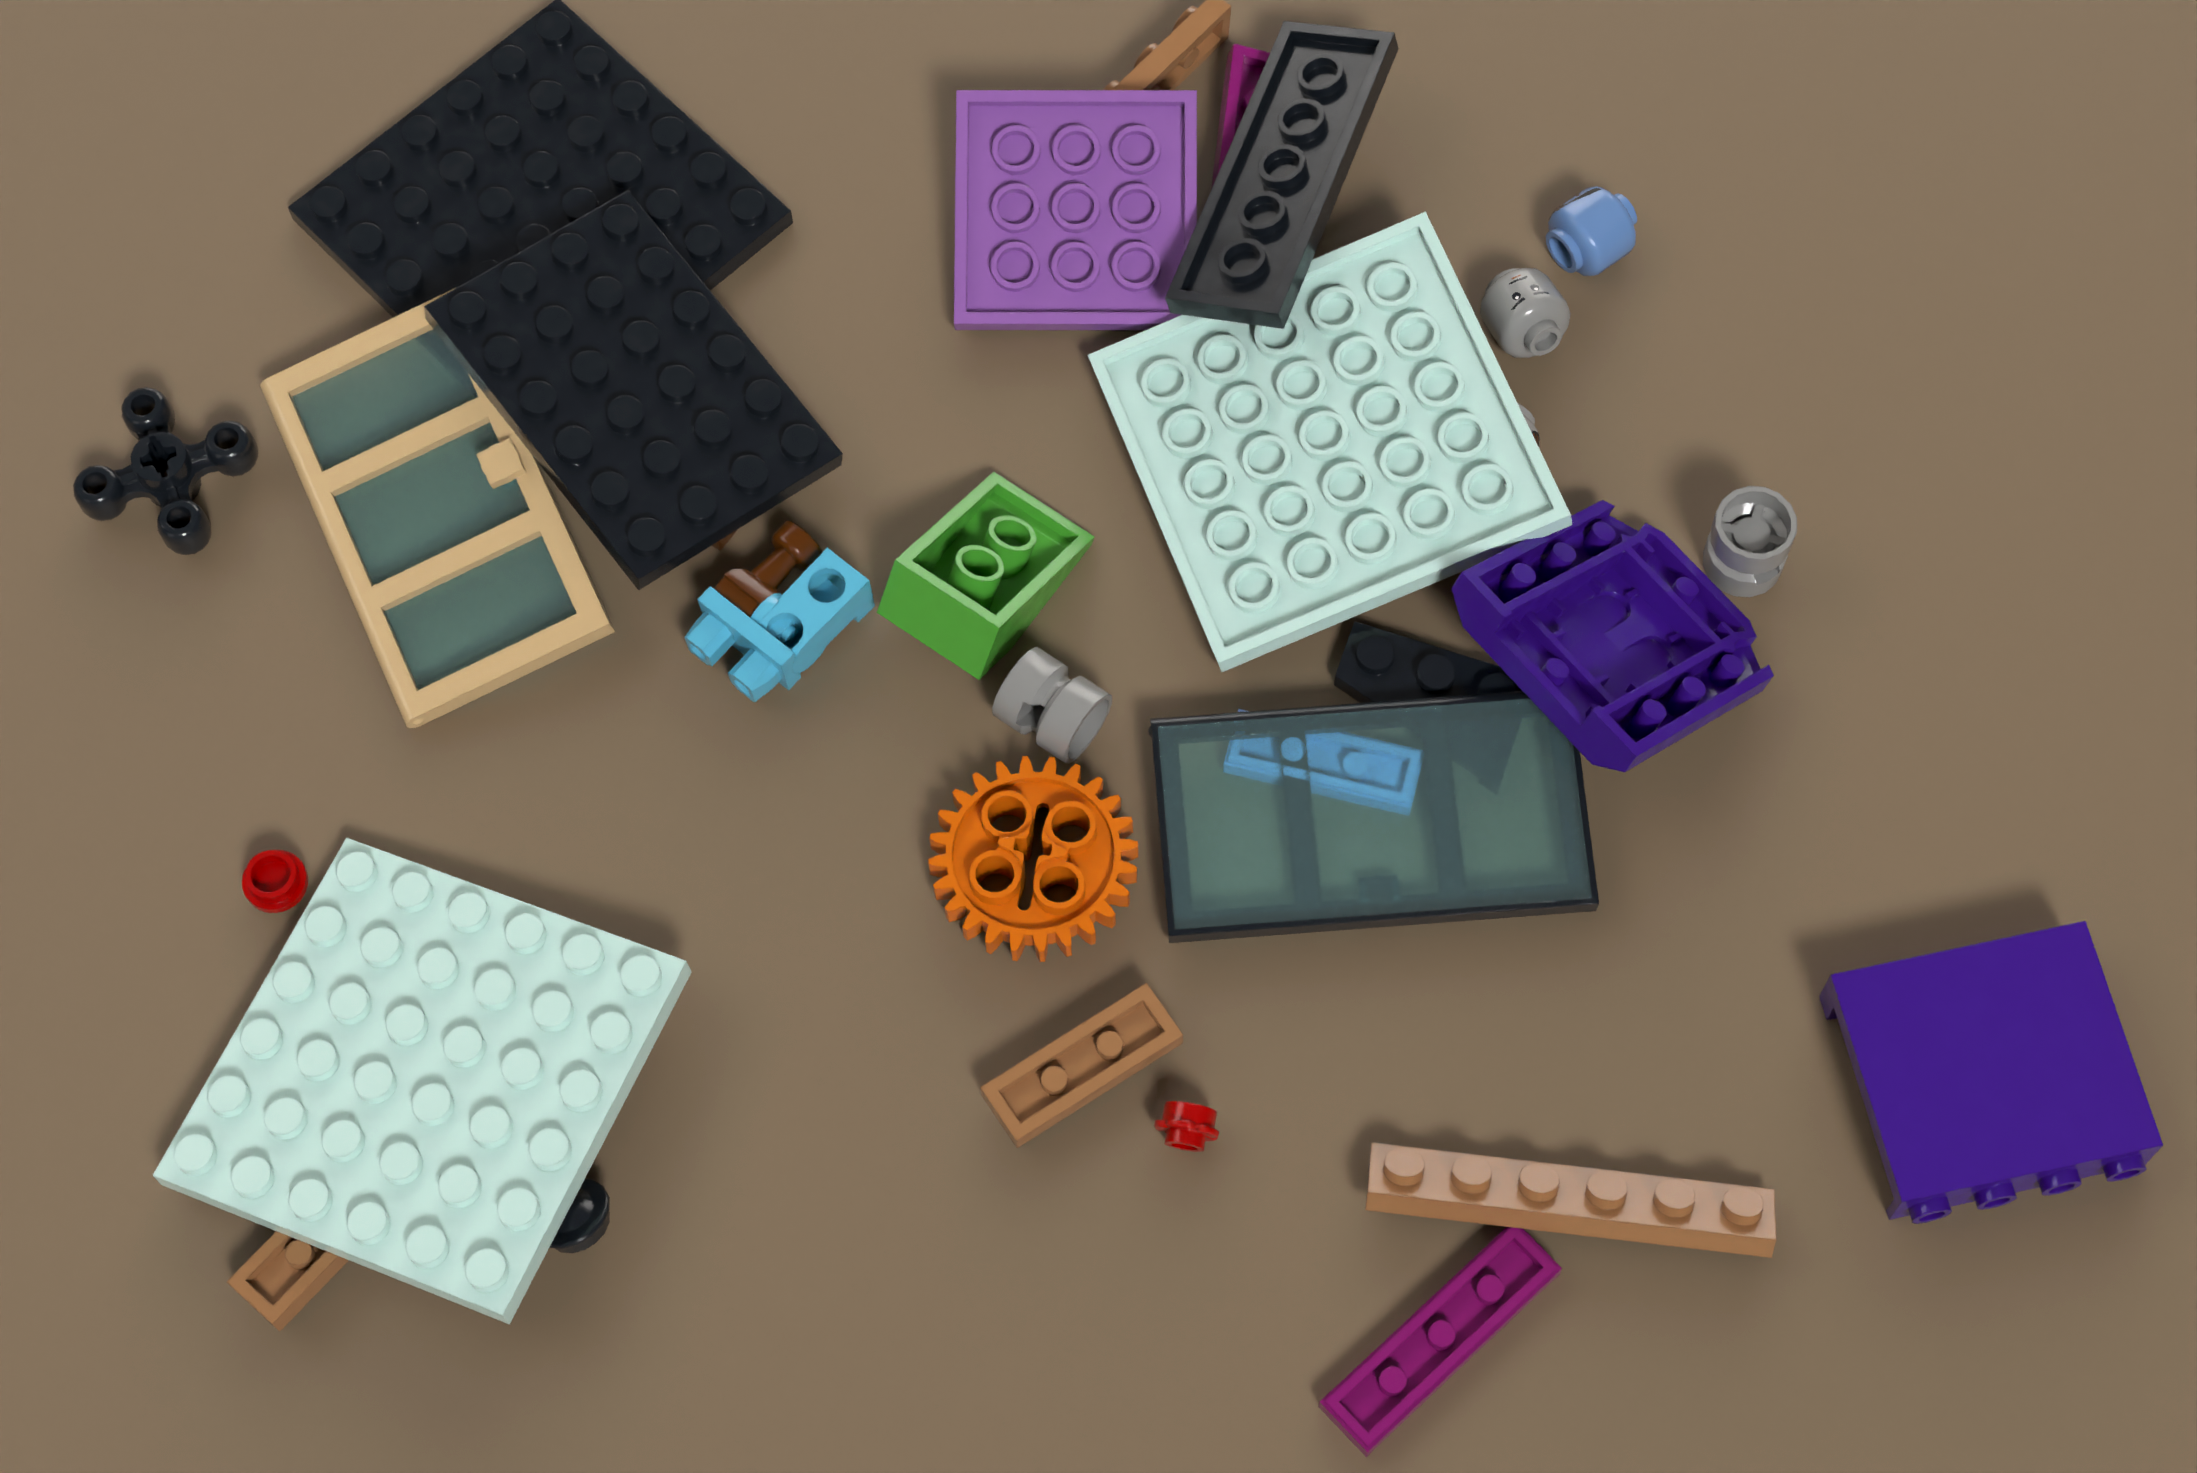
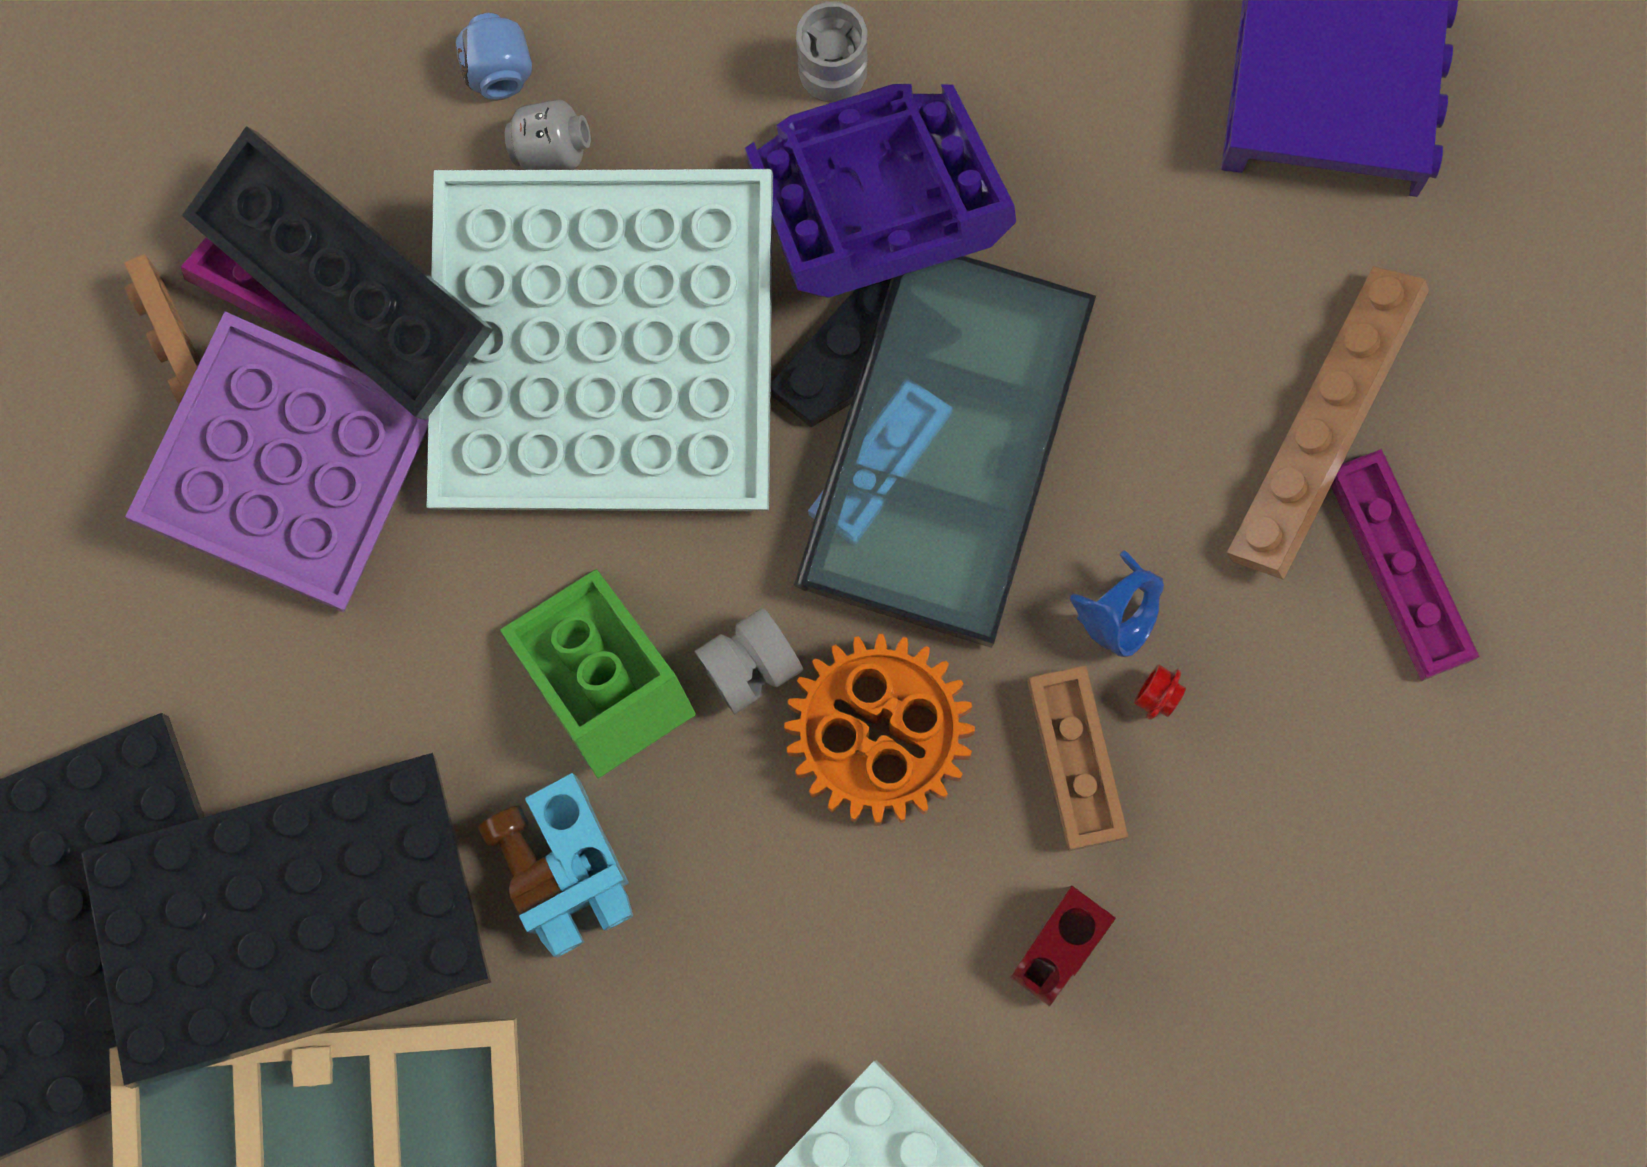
camera: 65 degrees left, 10 degrees up
(880, 1117) = (1062, 946): none -> dark red leg
(1233, 1070) = (1104, 617): none -> blue piece

